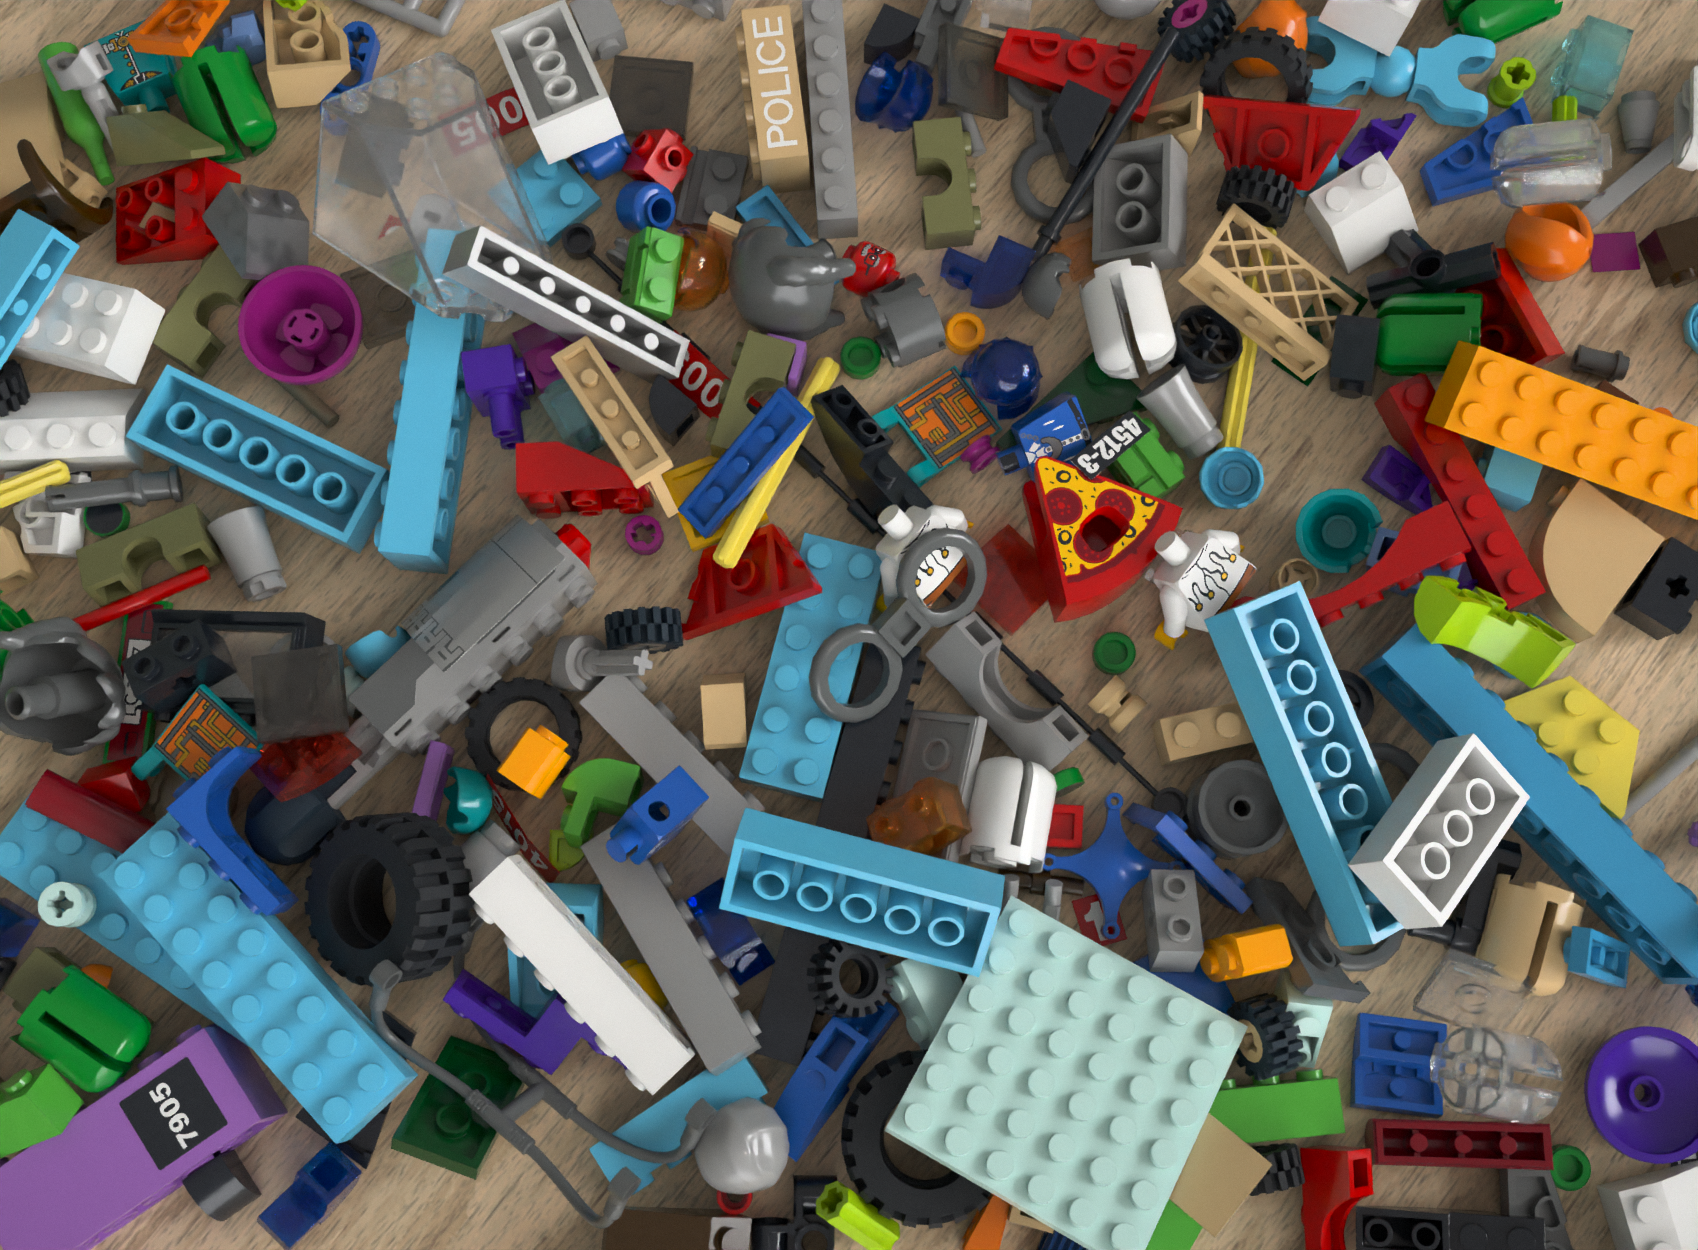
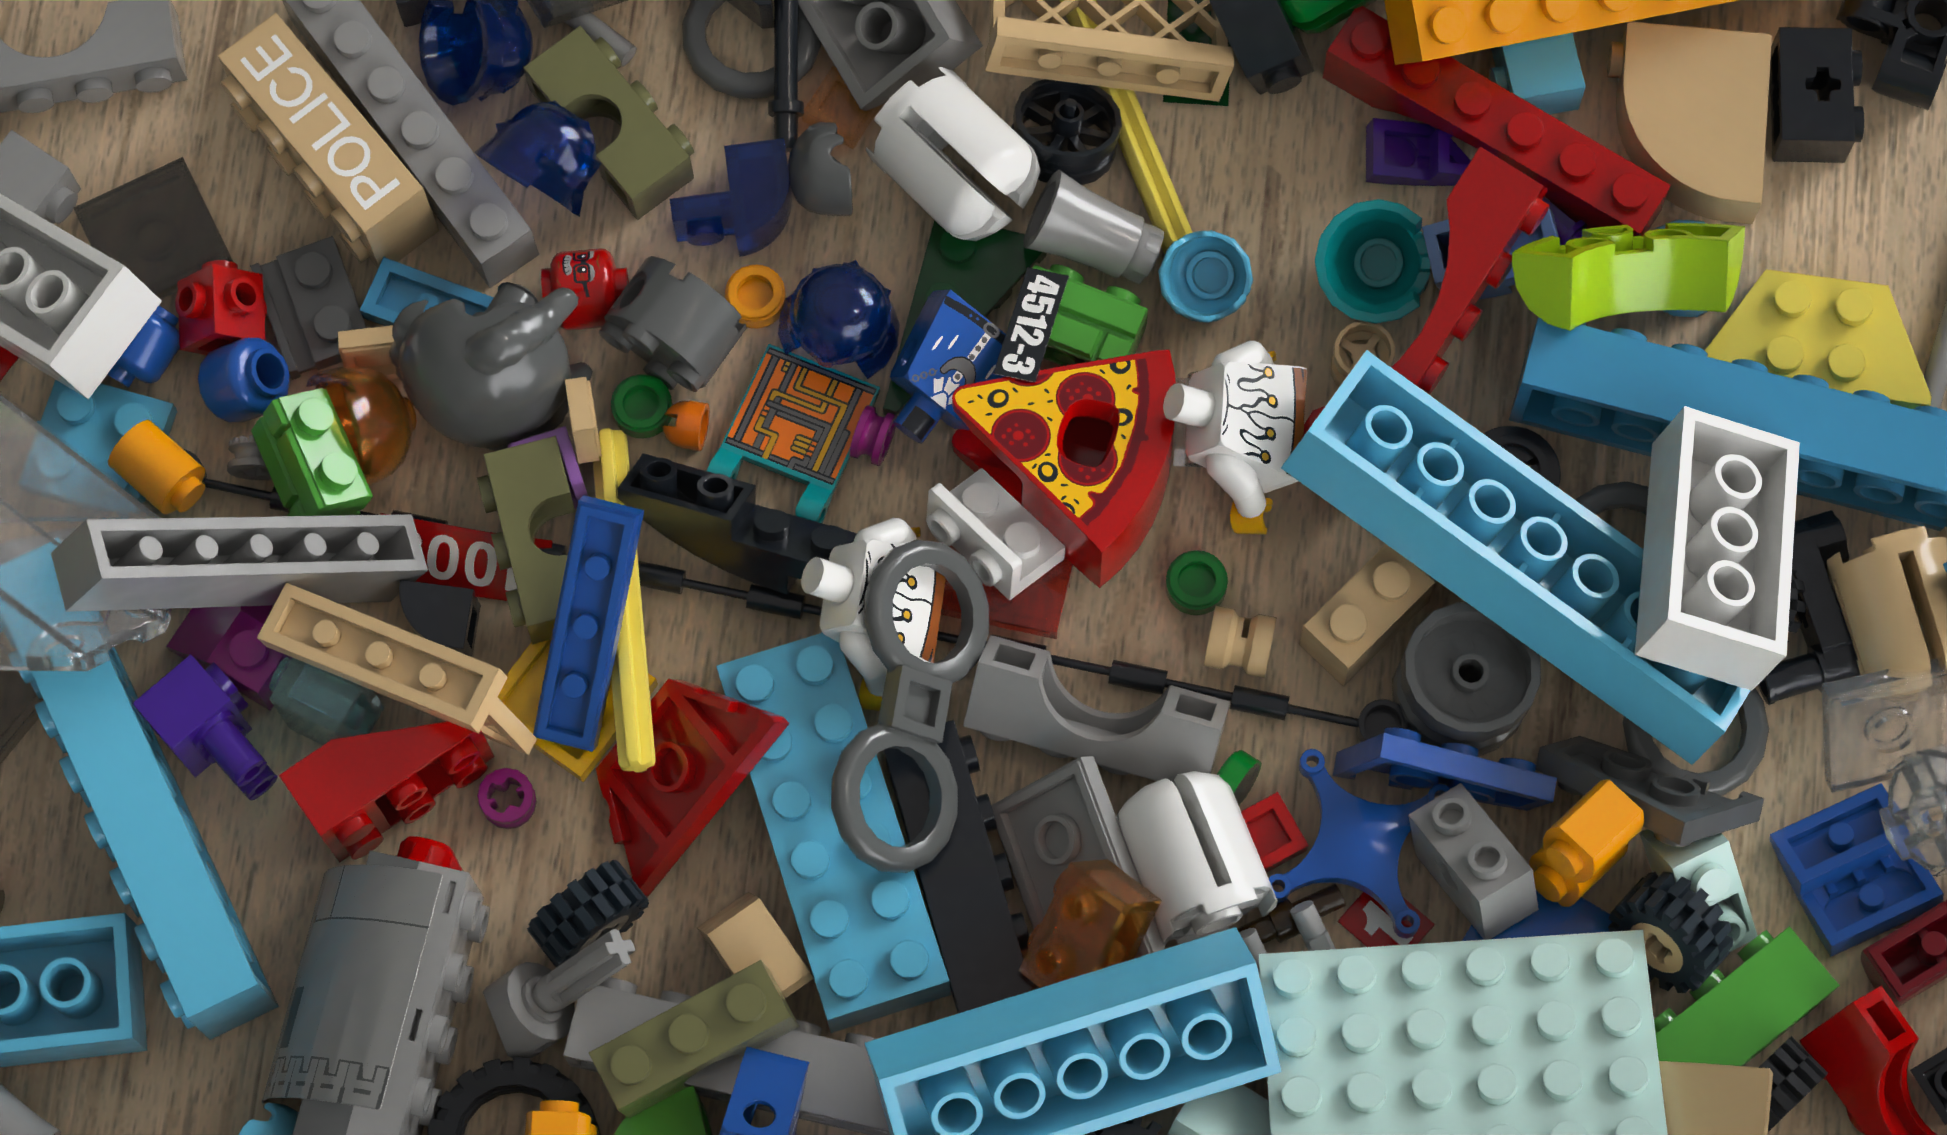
camera: 30 degrees left, 5 degrees down
(565, 228) = (158, 468): none -> light orange brick
(653, 740) = (673, 1046): none -> olive arch
(818, 344) = (583, 419): none -> tan tile
(880, 385) = (690, 424): none -> orange hinge
(895, 175) = (547, 150): none -> clear blue helmet
(1012, 553) = (993, 533): none -> white bracket

